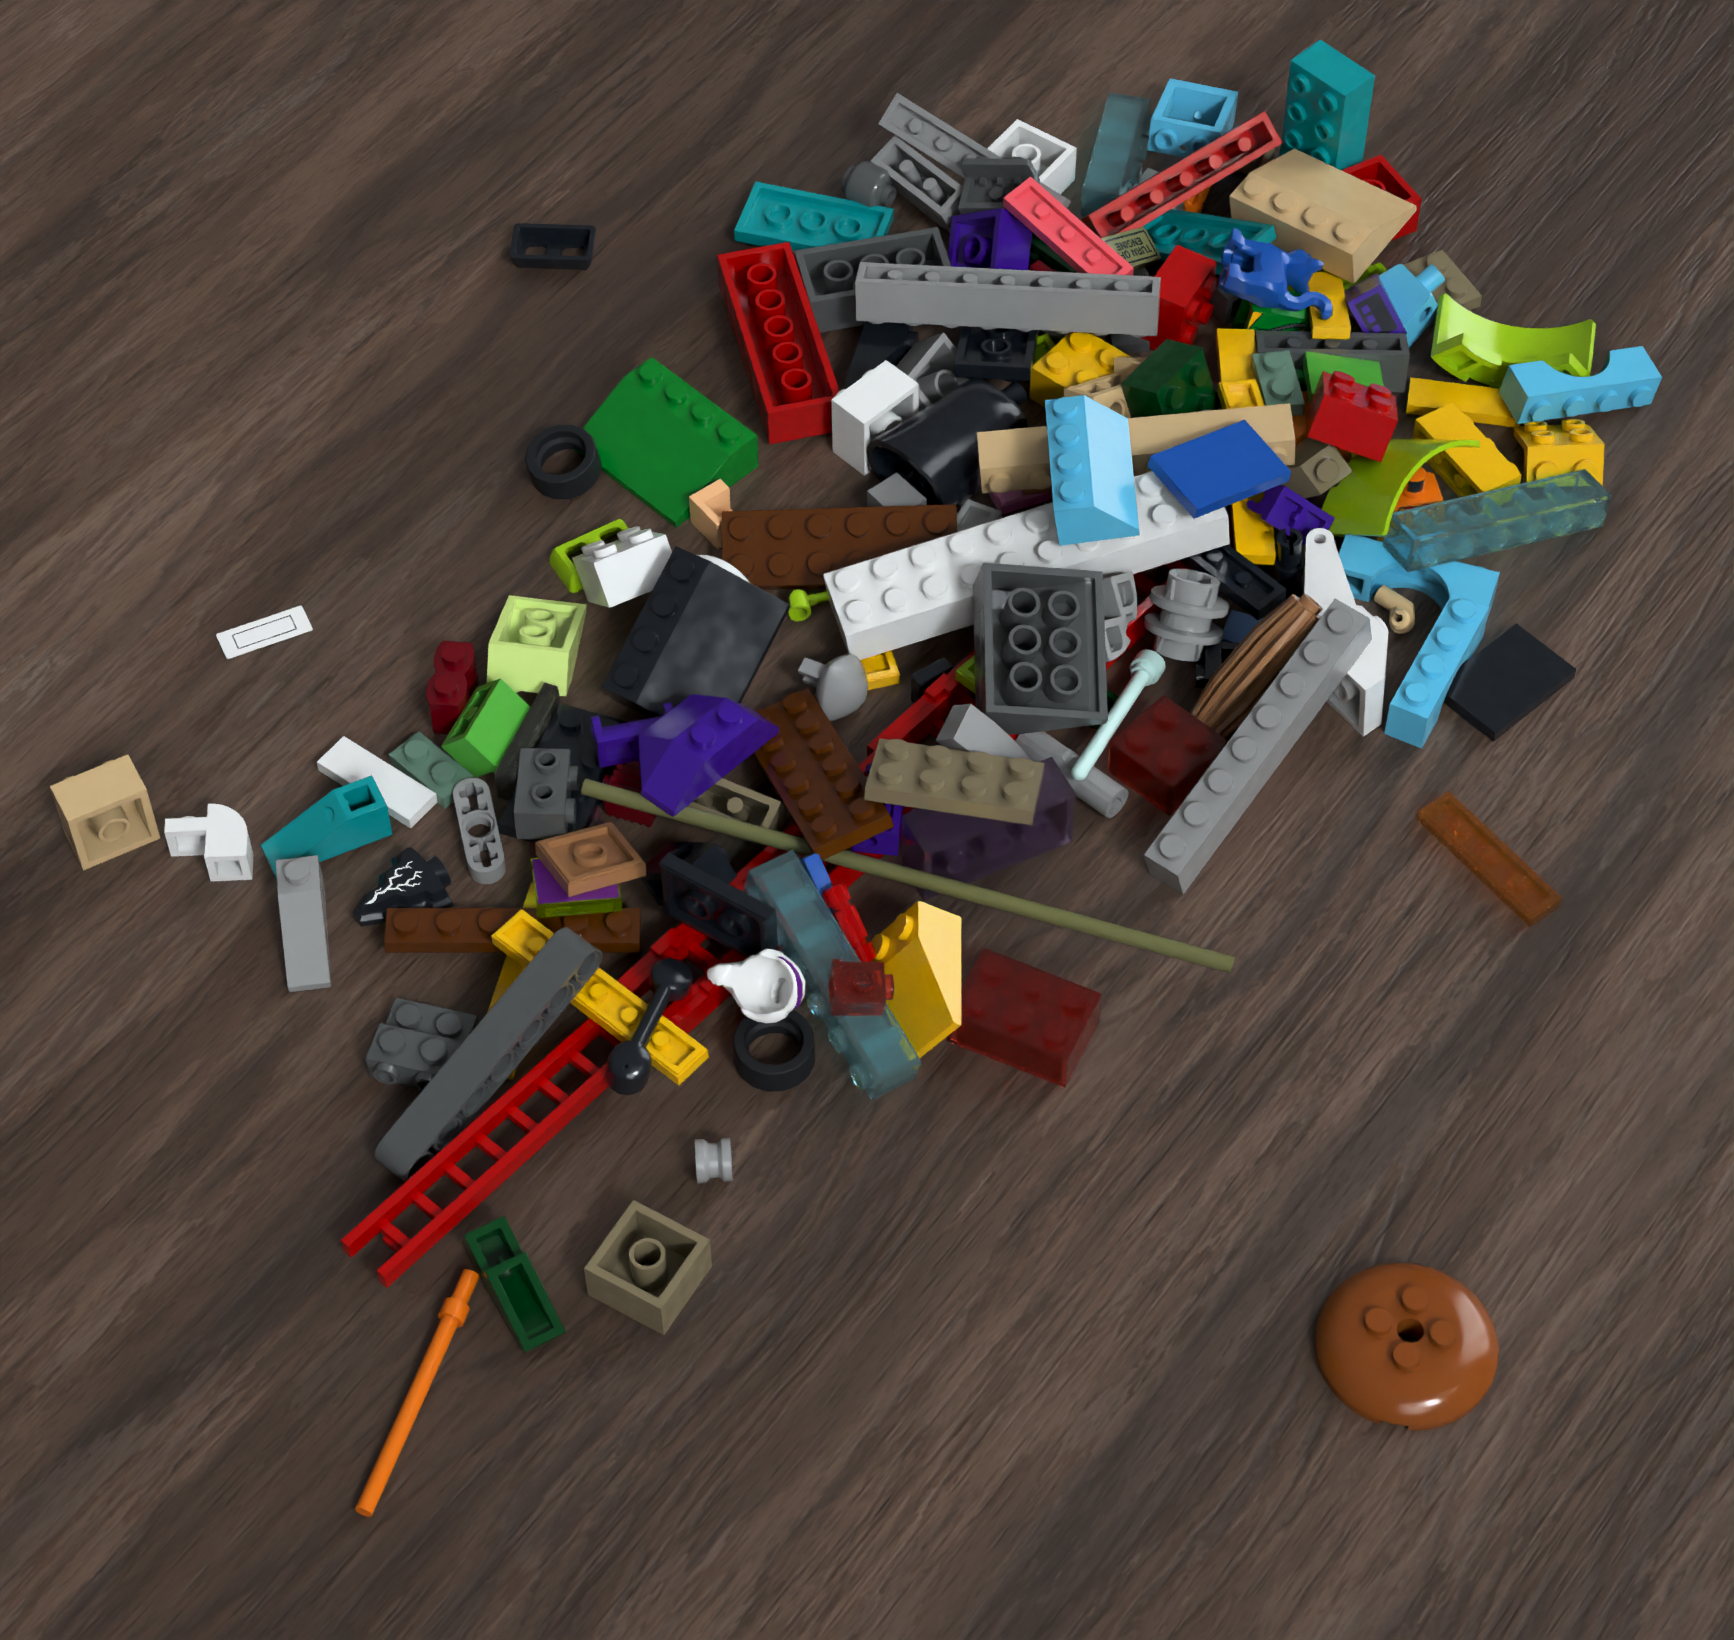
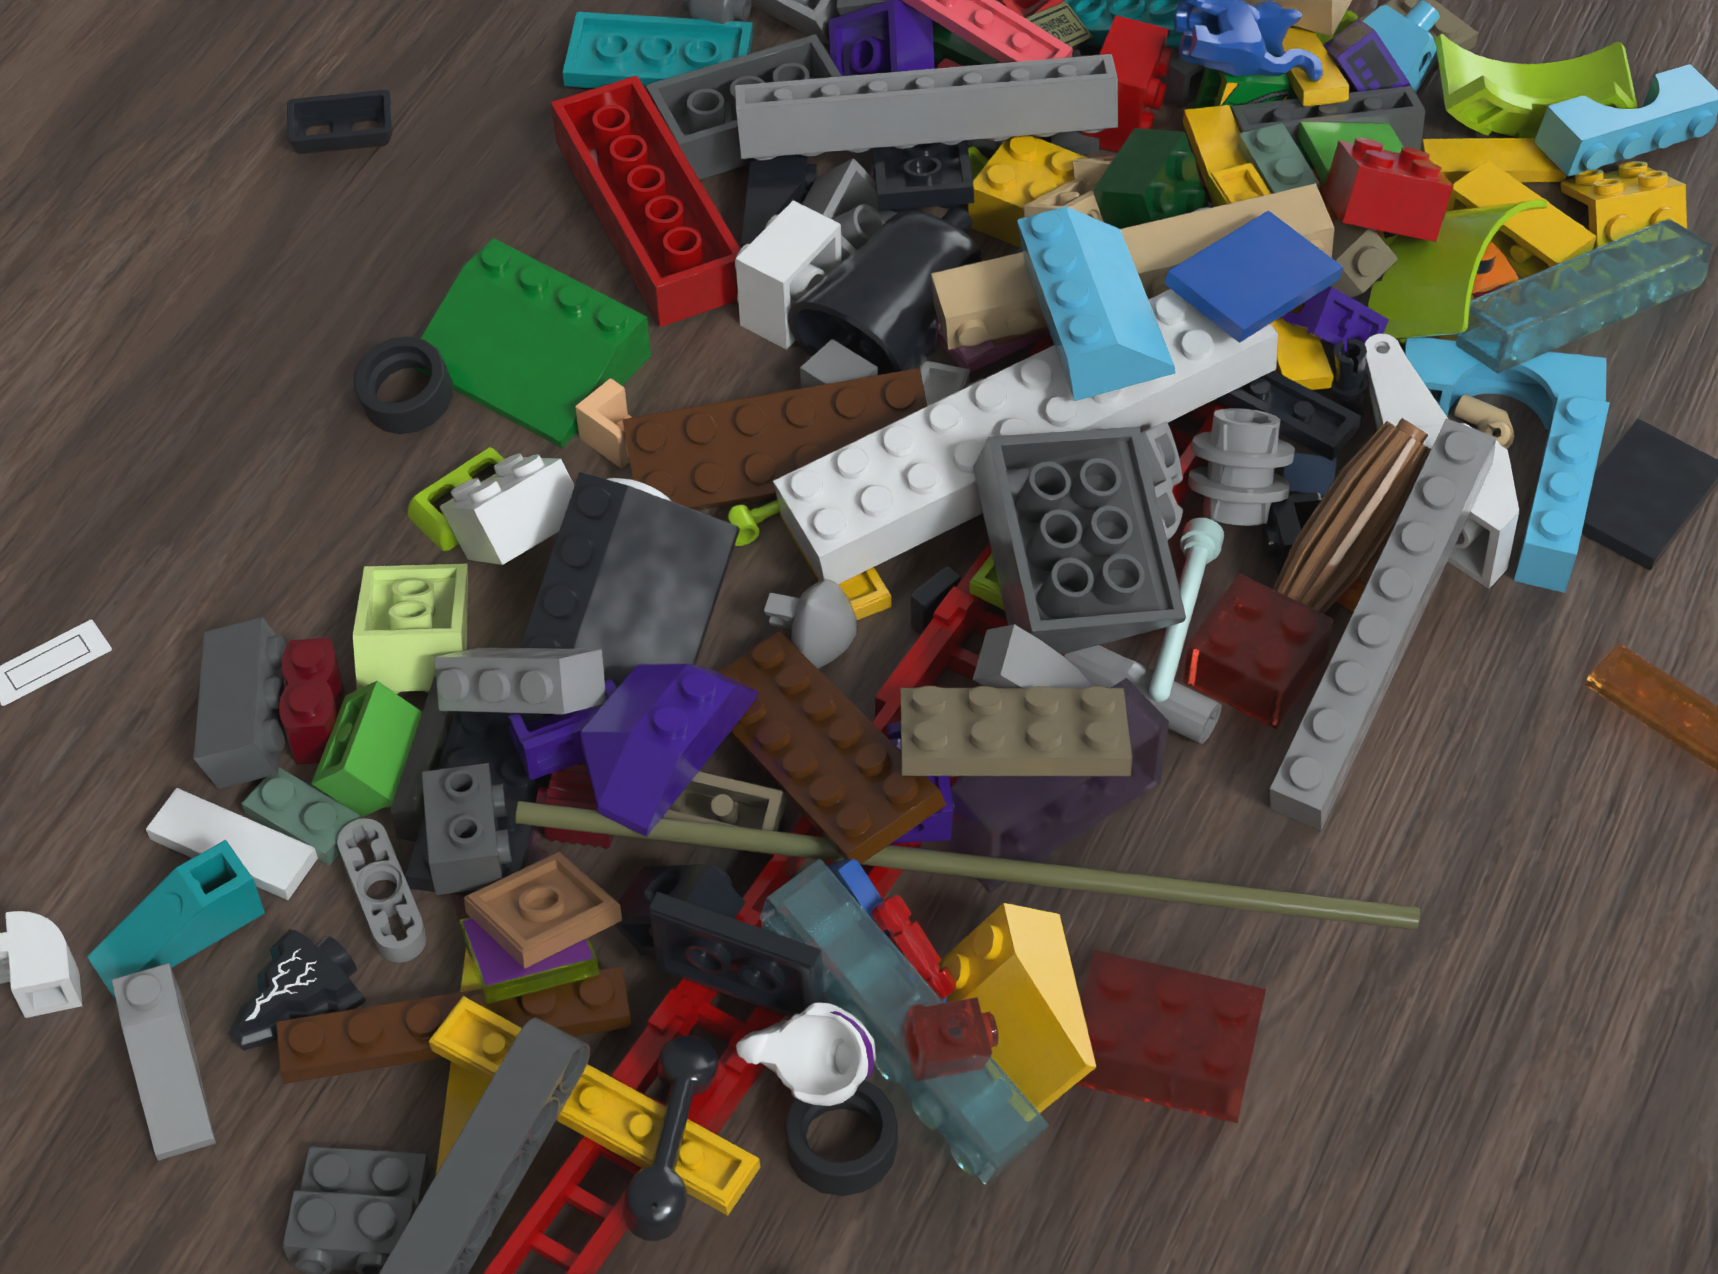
camera: 10 degrees left, 0 degrees up
(398, 681) = (239, 703): none -> dark grey brick
(604, 693) = (520, 680): none -> light grey brick

